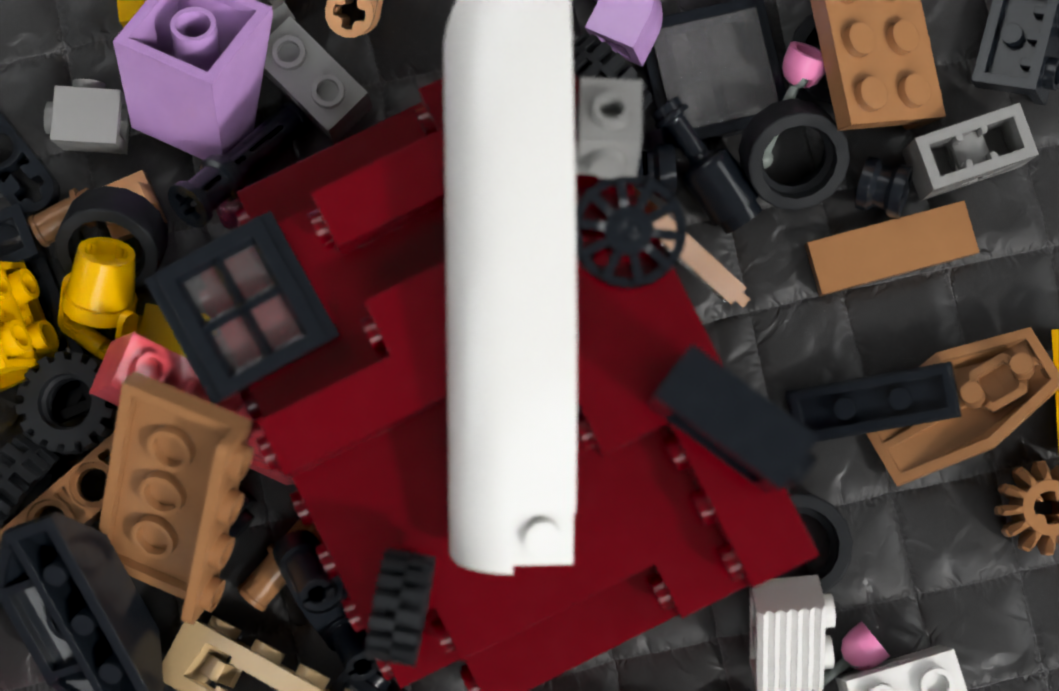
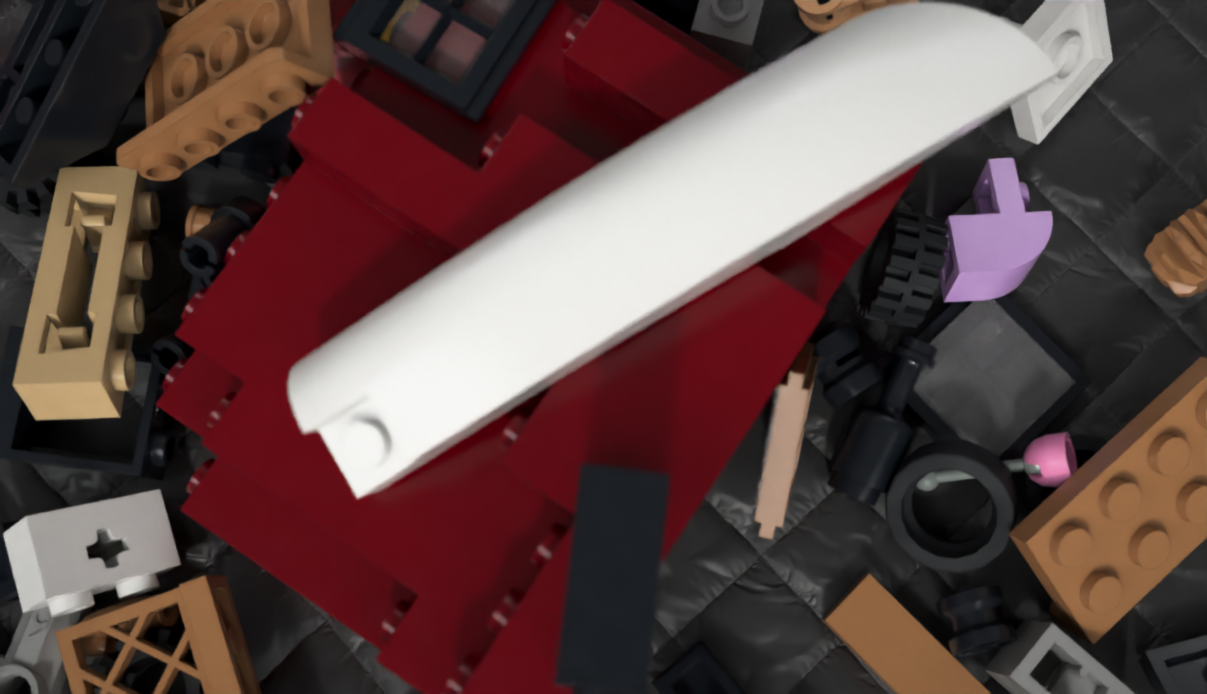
camera: 60 degrees right, 5 degrees down
(400, 607) = (208, 335): black tyre -> none
(608, 127) = (849, 261): light grey brick -> none
(629, 231) = (764, 346): black wheel -> none

